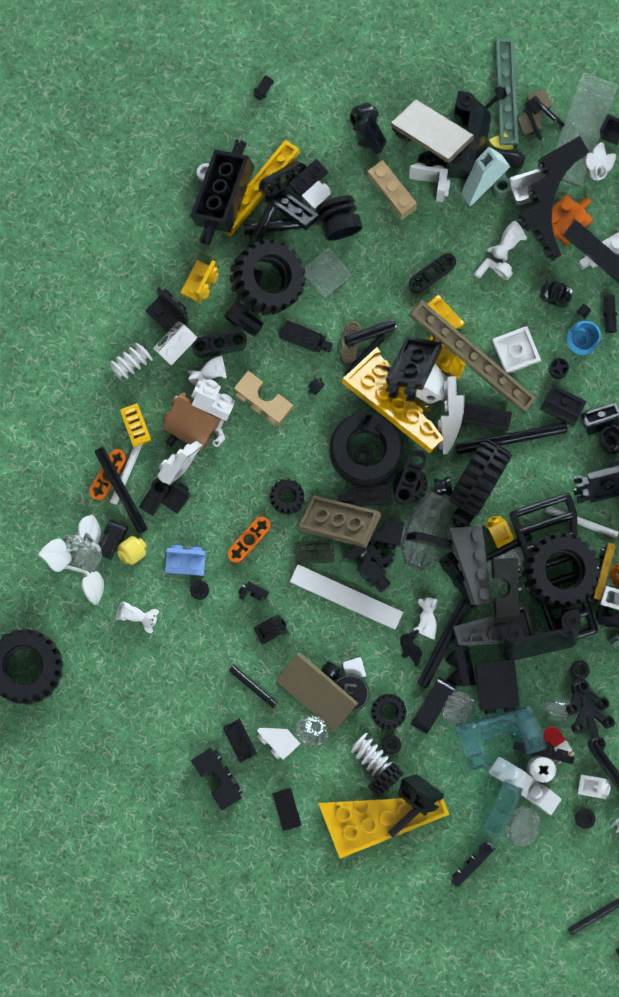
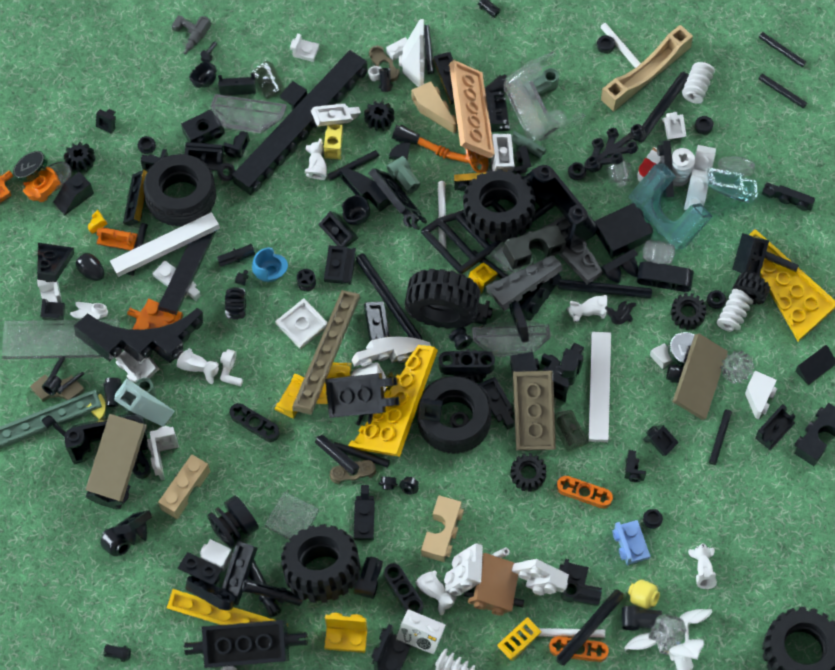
camera: 110 degrees left, 15 degrees down
(326, 369) = (388, 483): none -> black plate

